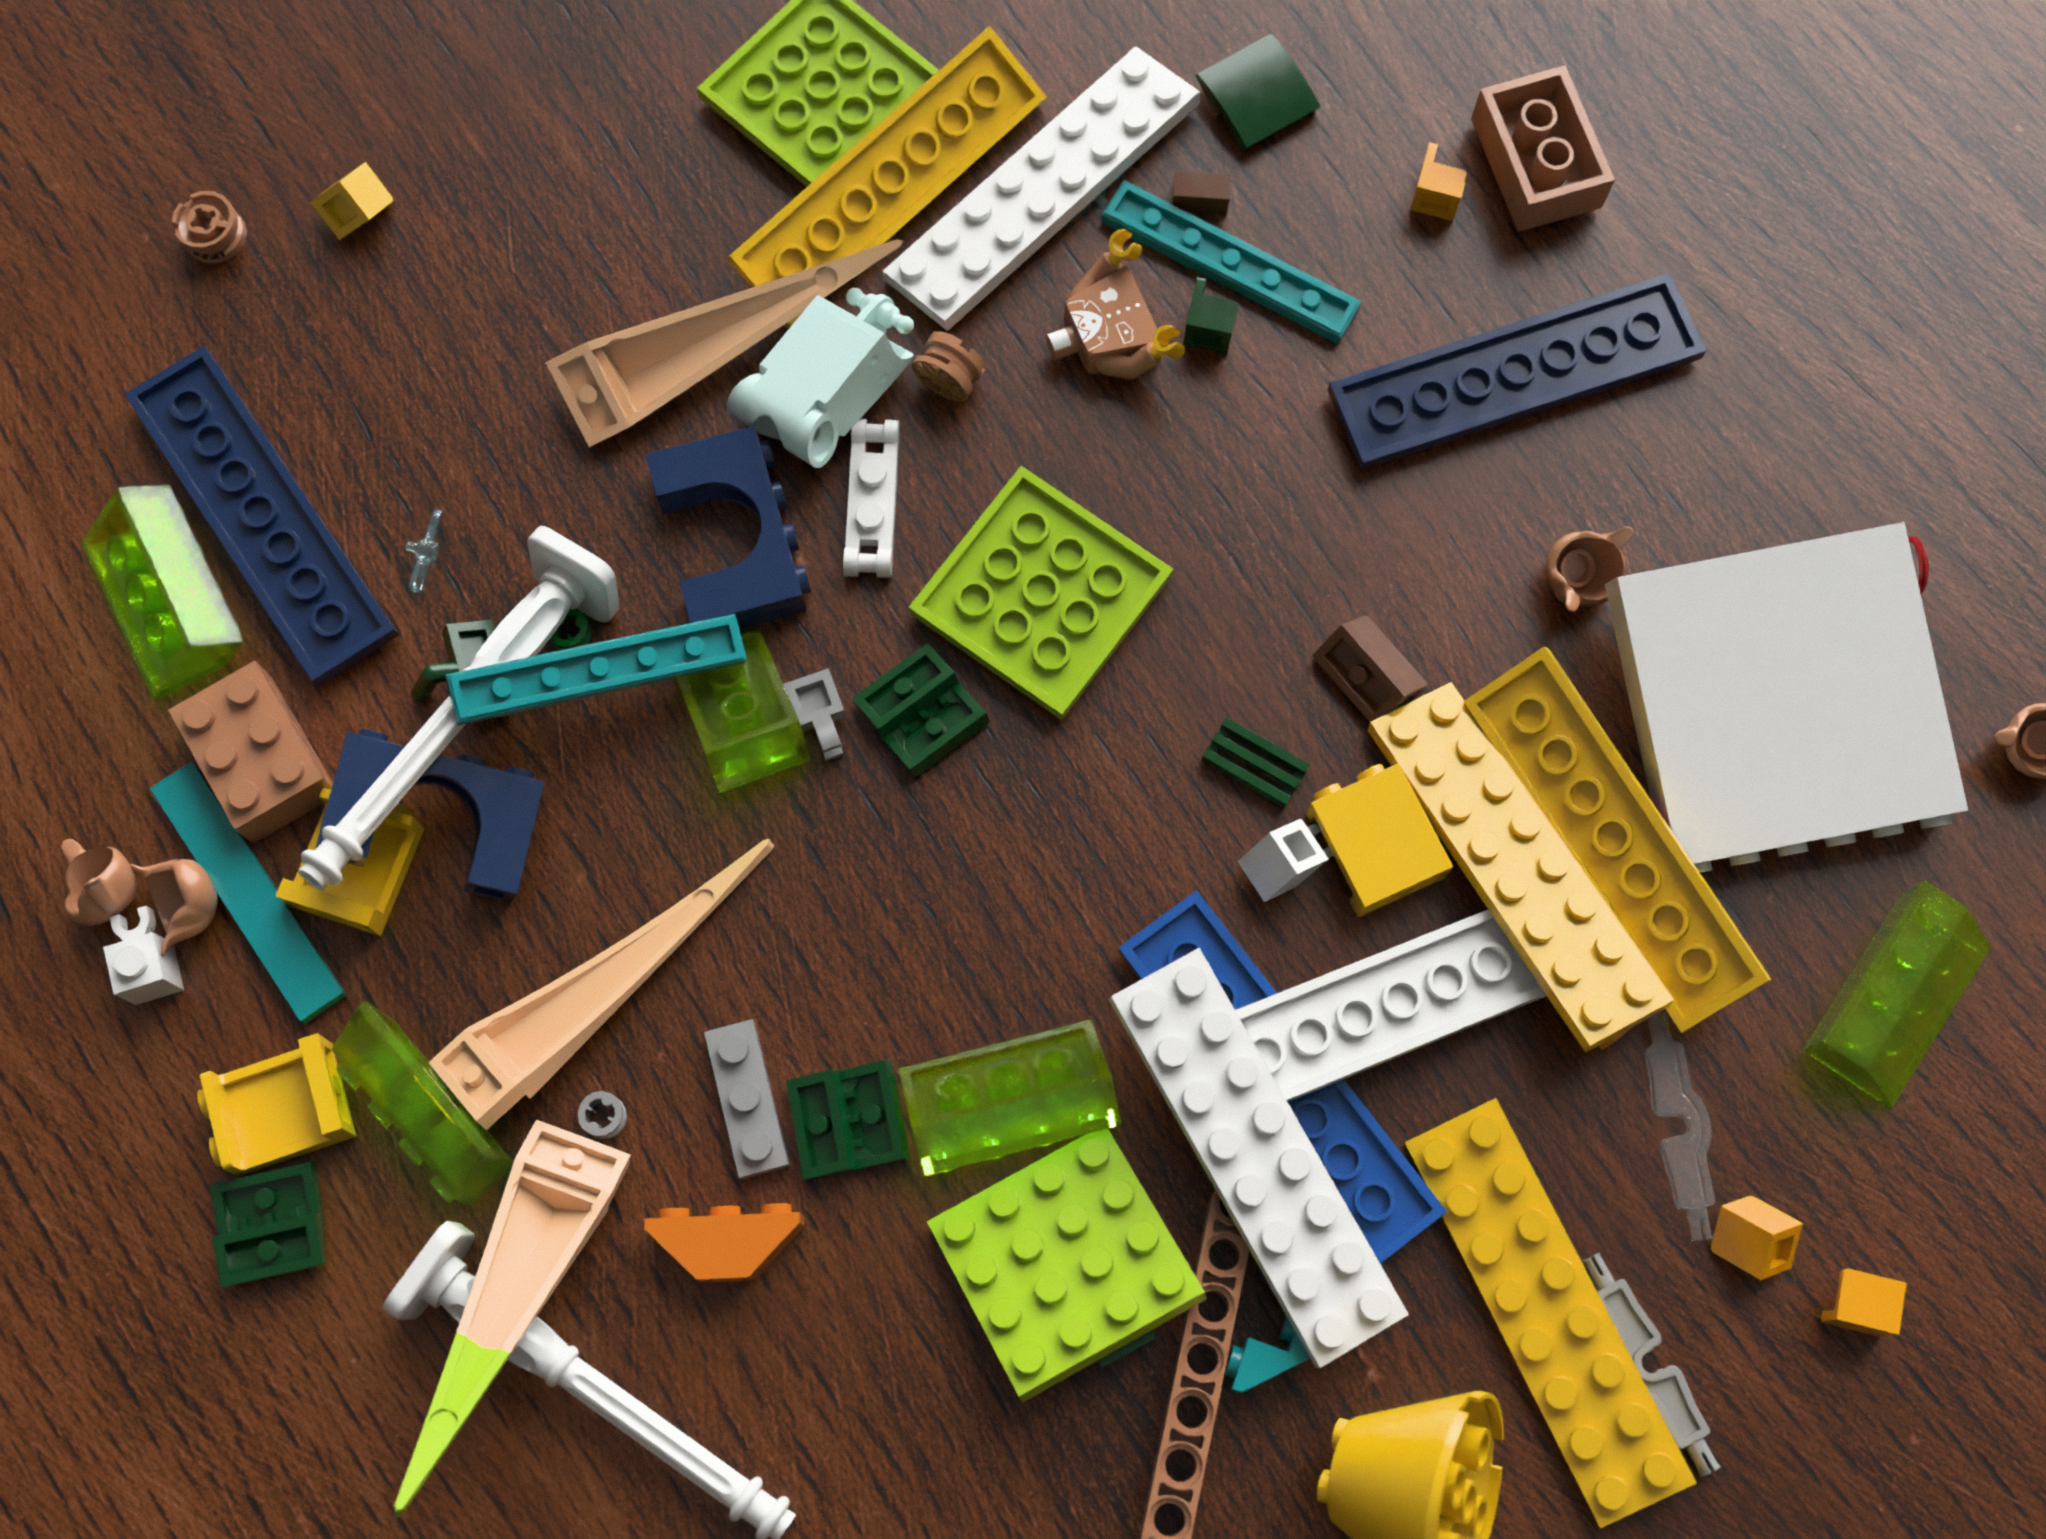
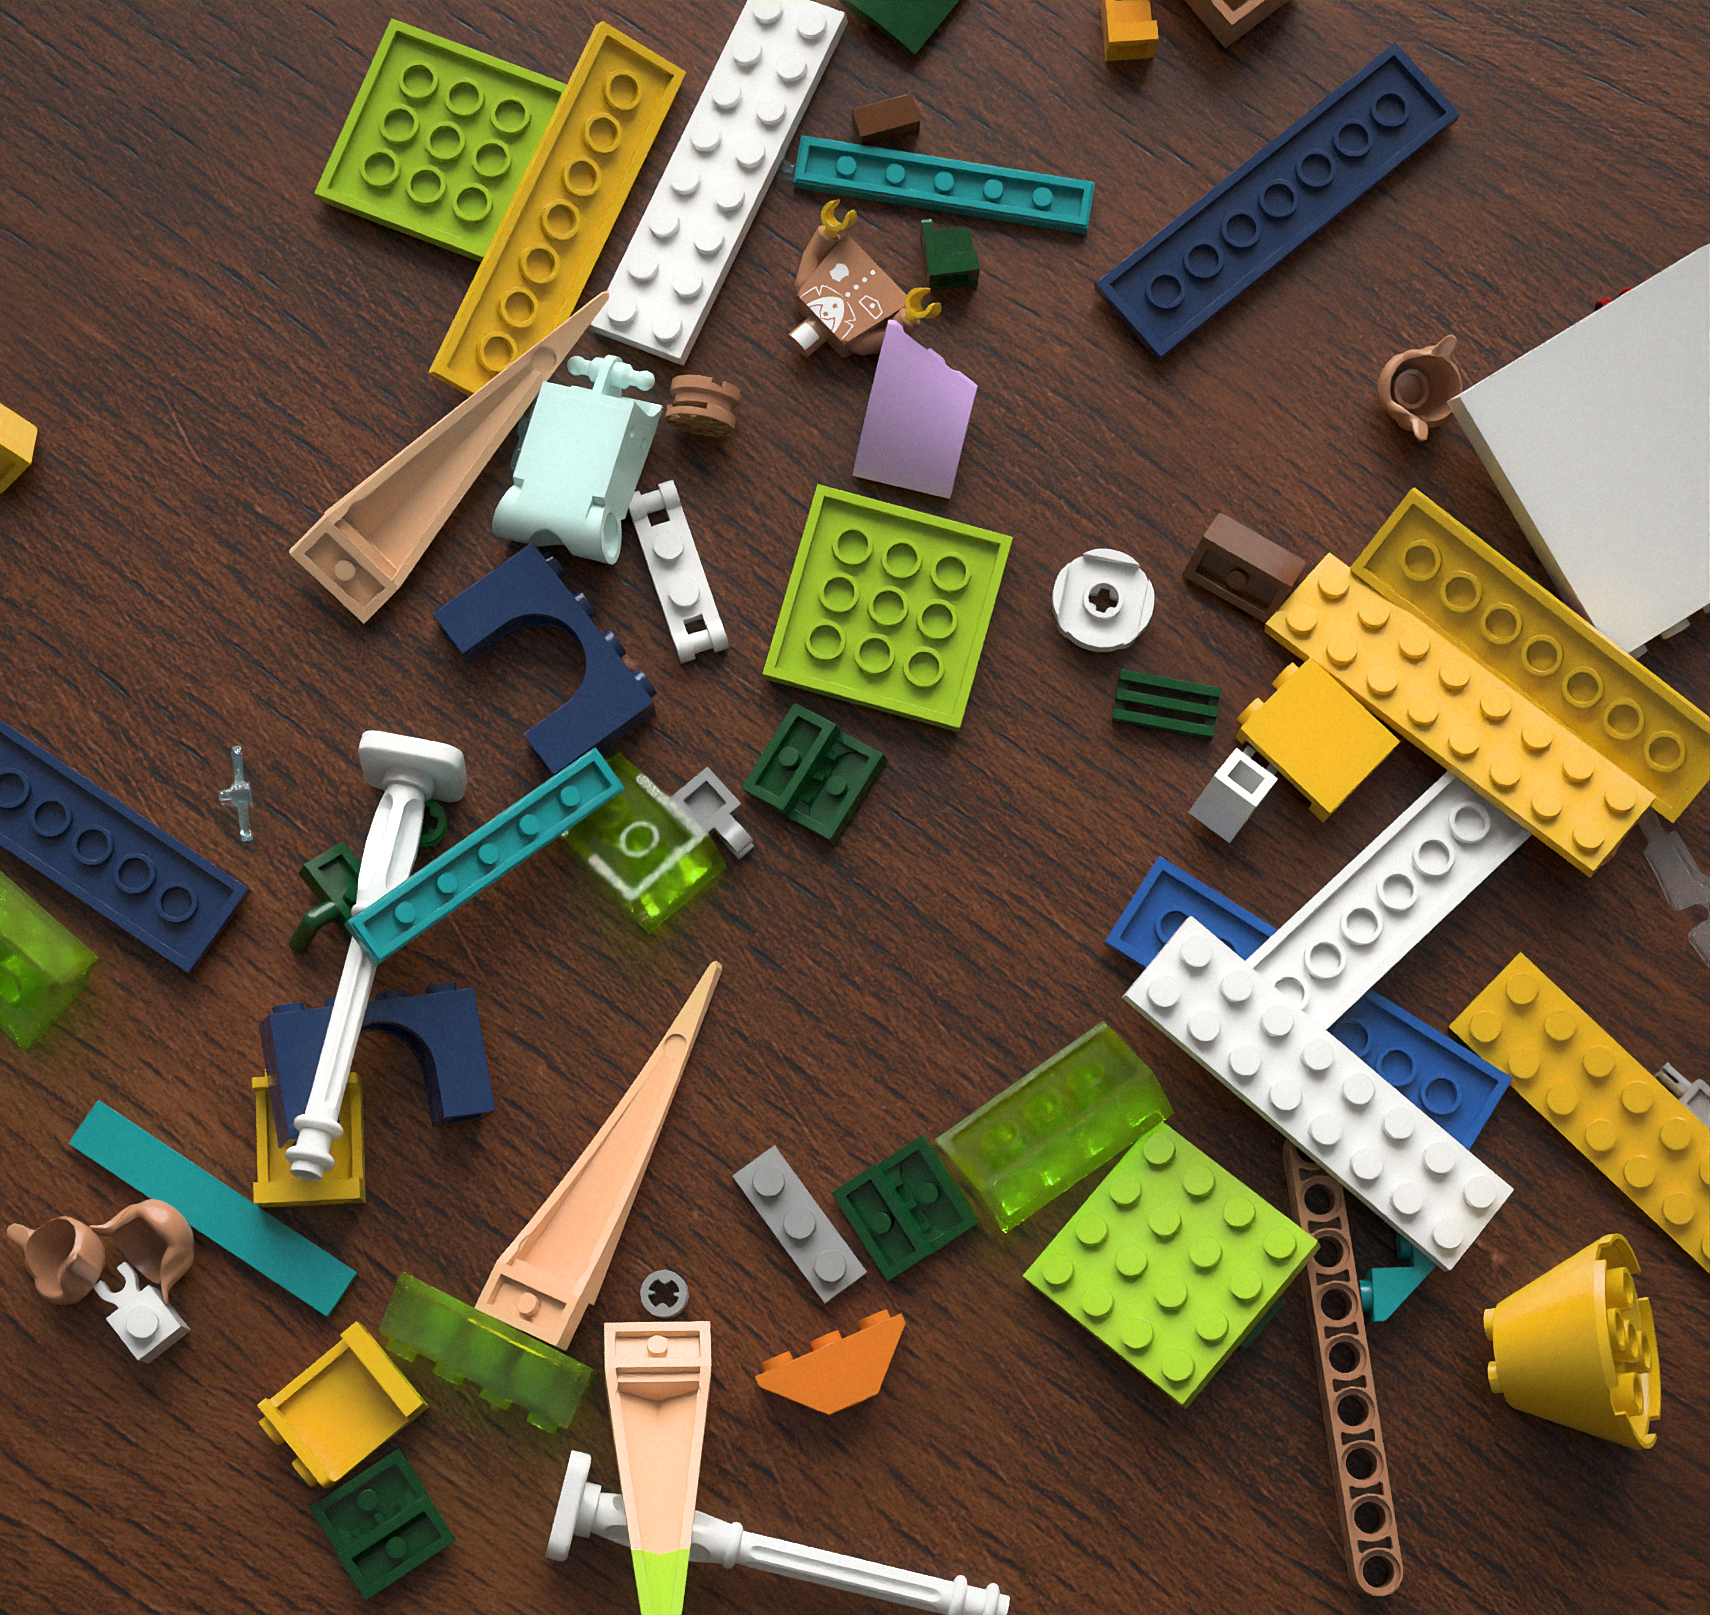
camera: 25 degrees left, 5 degrees up
(252, 752) = (160, 1067): nougat brick -> none
(1126, 439) = (914, 418): none -> lavender slope
(1237, 678) = (1127, 585): none -> white plate

